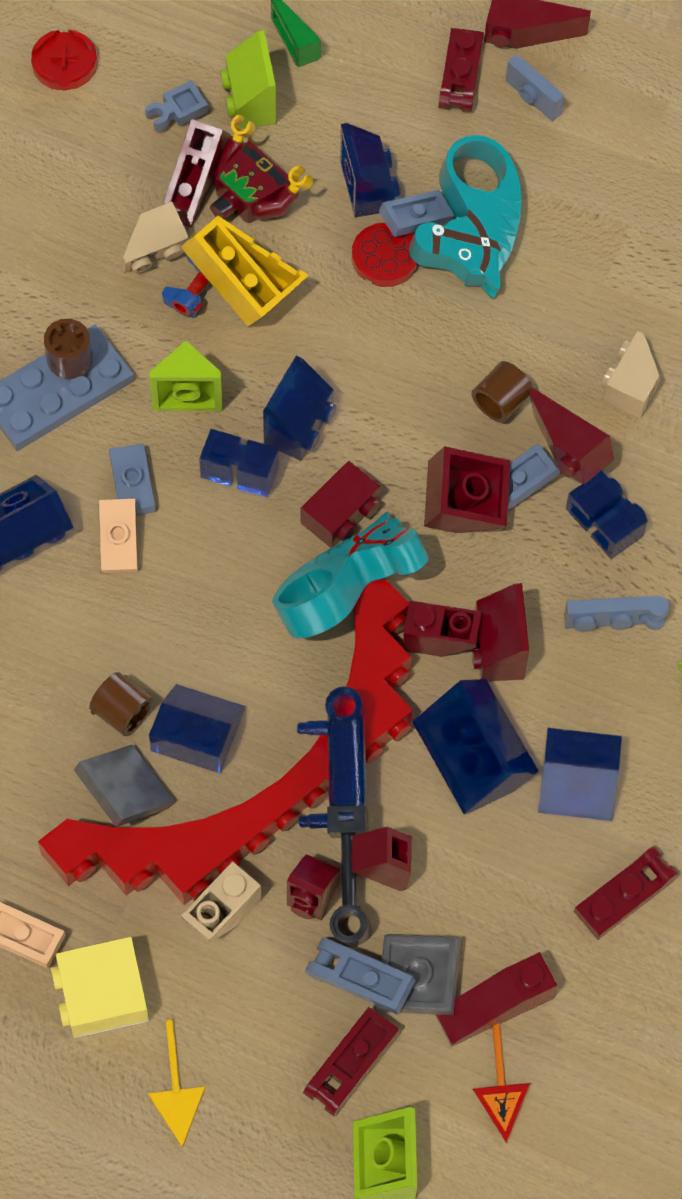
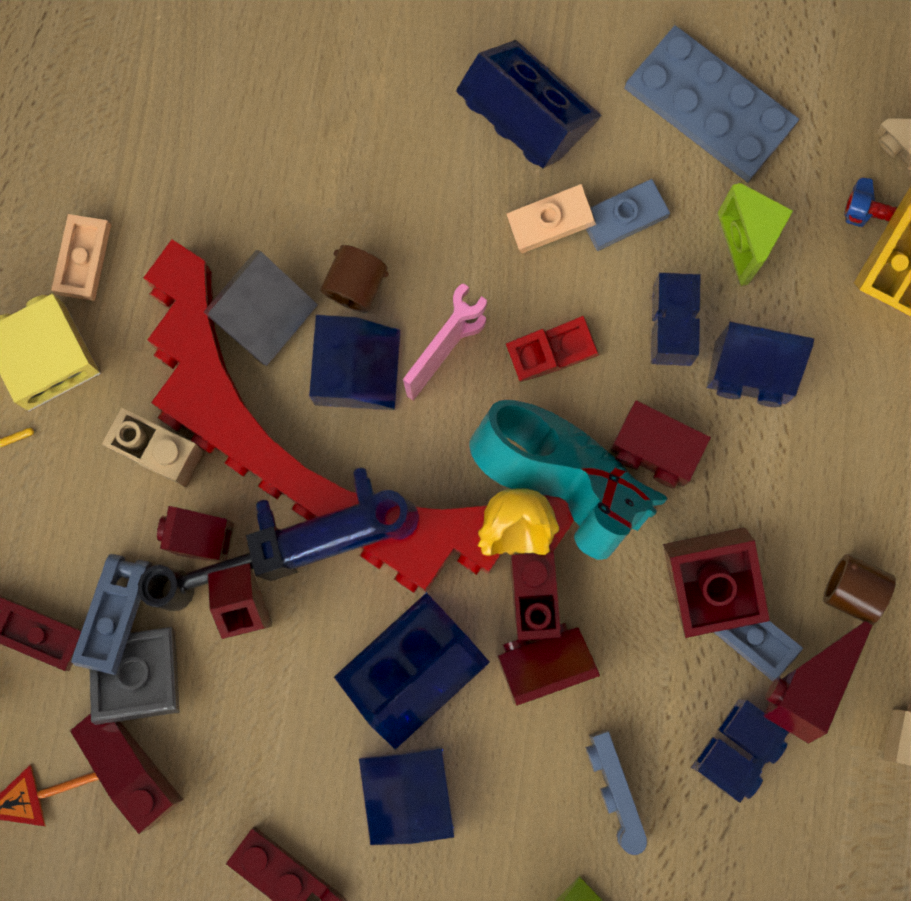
camera: 80 degrees right, 15 degrees up
(68, 348) = (750, 93): reddish brown piece -> none
(204, 640) = (446, 340): none -> bright pink flag
(232, 566) = (552, 349): none -> red slope
(380, 613) = (517, 522): none -> yellow hair

